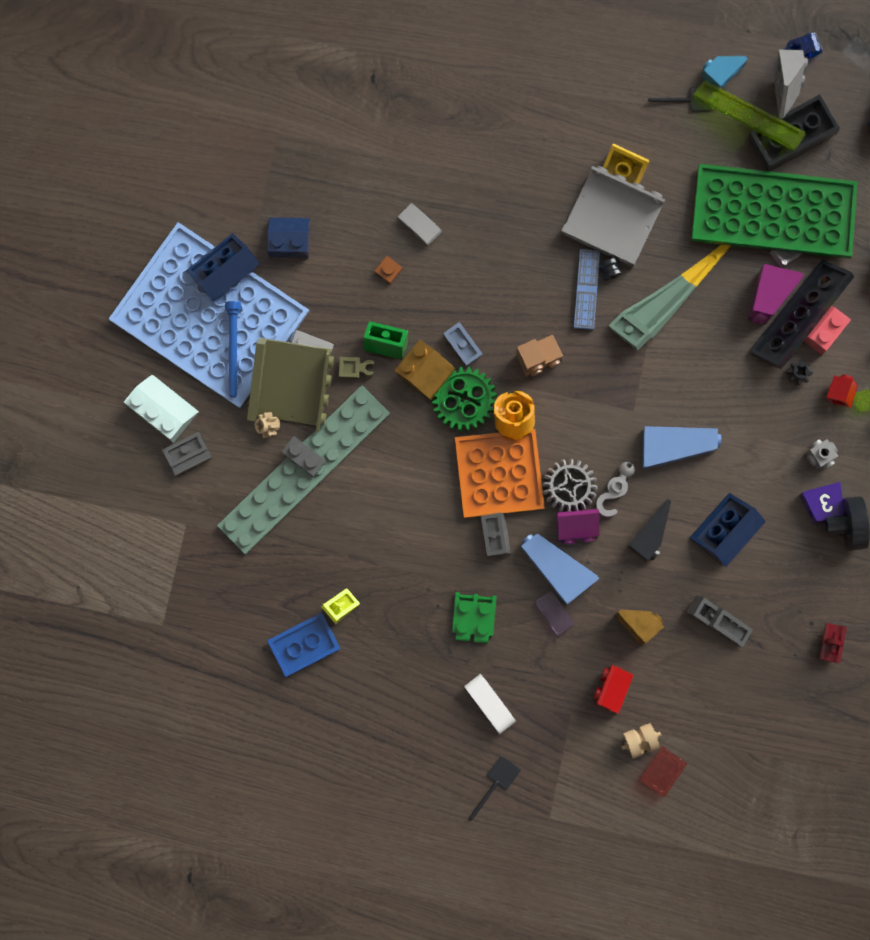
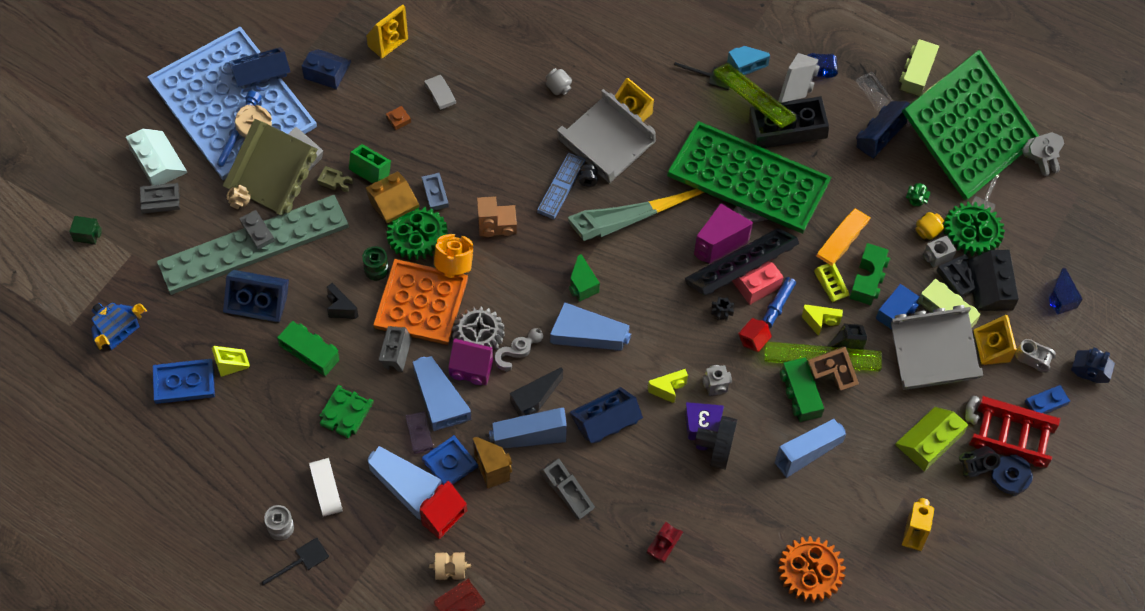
camera: 15 degrees right, 20 degrees down
(129, 518) = (85, 230): none -> dark green brick
(207, 610) = (114, 323): none -> torso
(244, 334) = (246, 116): none -> tan tile
(333, 527) = (255, 295): none -> dark blue slope
(338, 175) = (388, 33): none -> yellow slope
(411, 565) = (309, 348): none -> green brick
(426, 507) = (341, 305): none -> black slope
(438, 449) = (375, 263): none -> dark green wheel
(463, 757) = (279, 522): none -> light grey wheel
(538, 168) = (558, 82): none -> light grey head
(567, 671) = (403, 479): none -> light blue slope
(597, 634) = (450, 461): none -> blue plate
(650, 391) = (583, 281): none -> green slope
(662, 575) = (530, 430): none -> medium blue slope
(773, 480) = (664, 385): none -> neon yellow slope
(850, 352) = (775, 308): none -> blue pin

